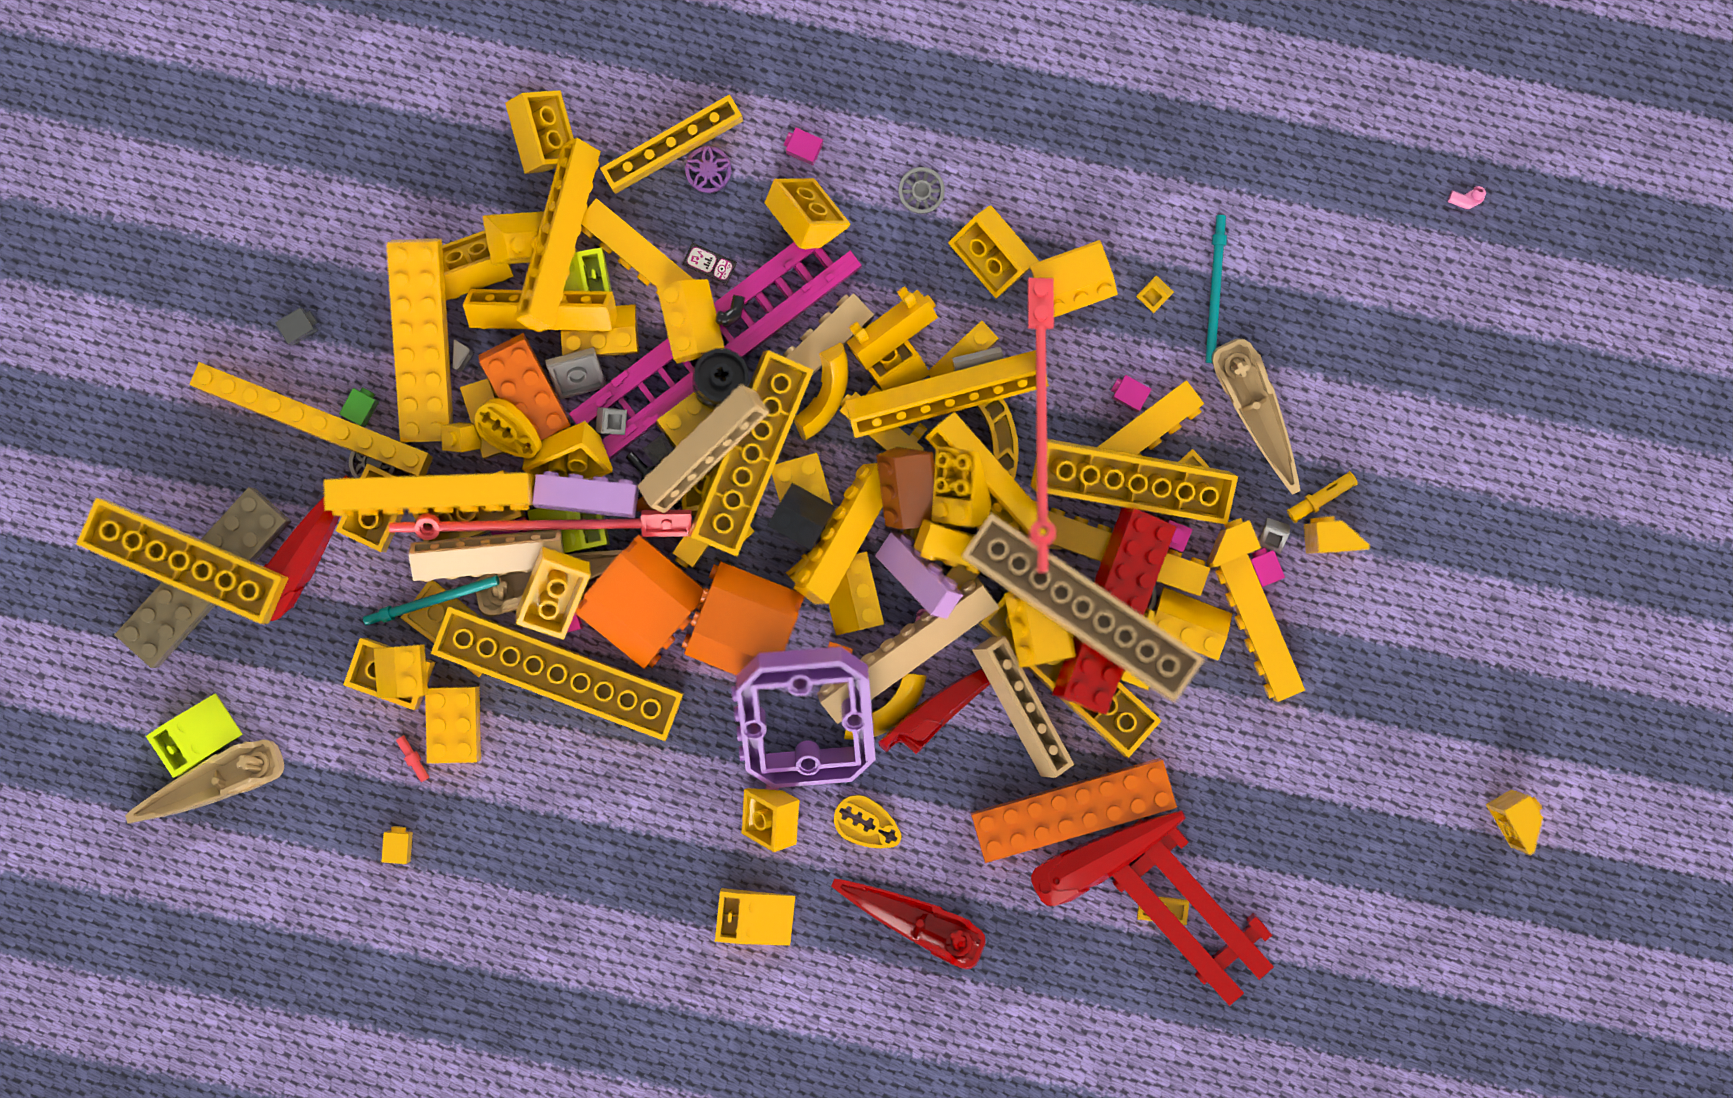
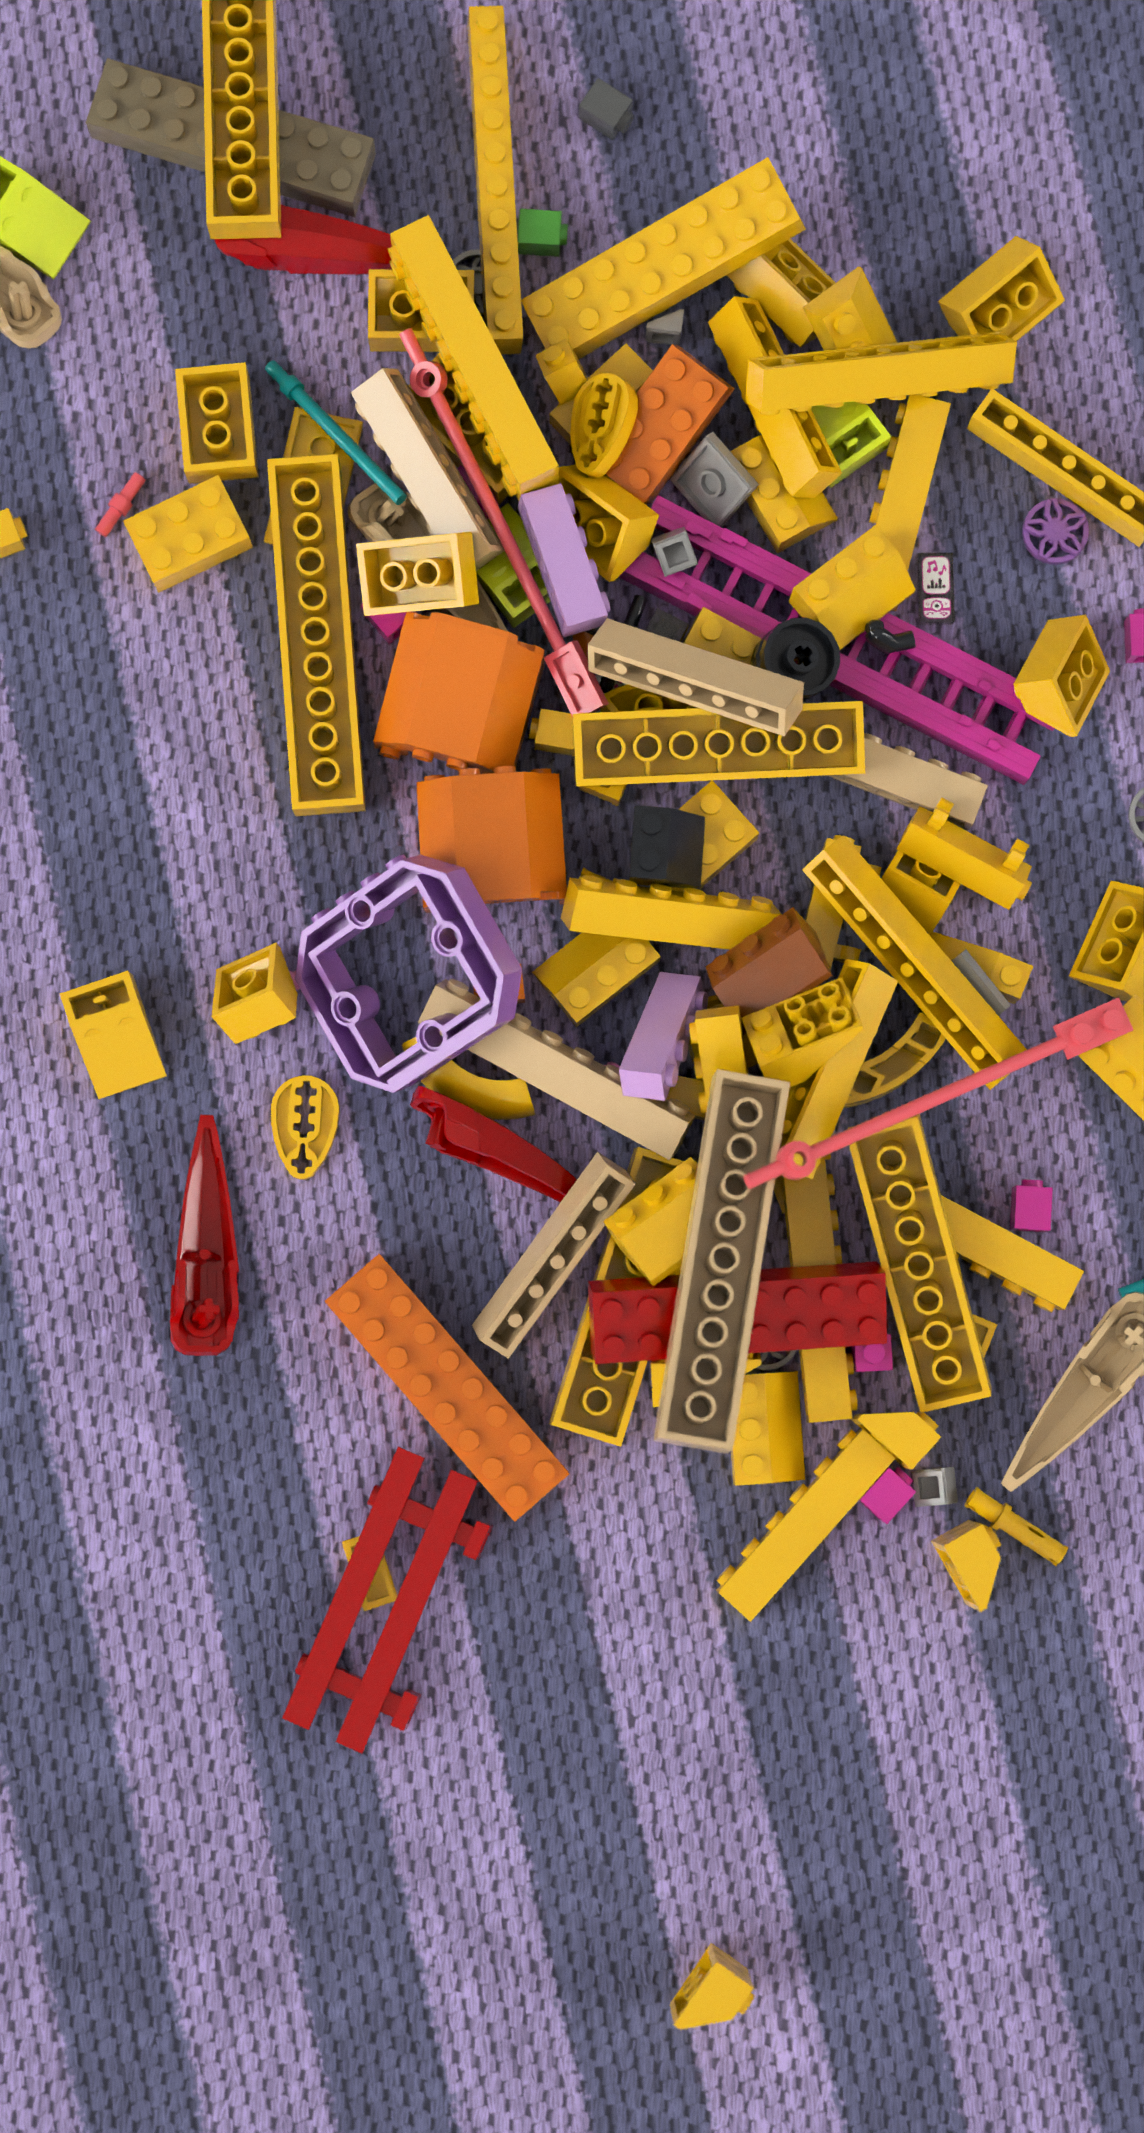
camera: 65 degrees right, 5 degrees down
(400, 671) = (227, 432): yellow slope -> none
(831, 394) = (840, 818): yellow brick -> none
(1093, 862) = (390, 1446): red piece -> none

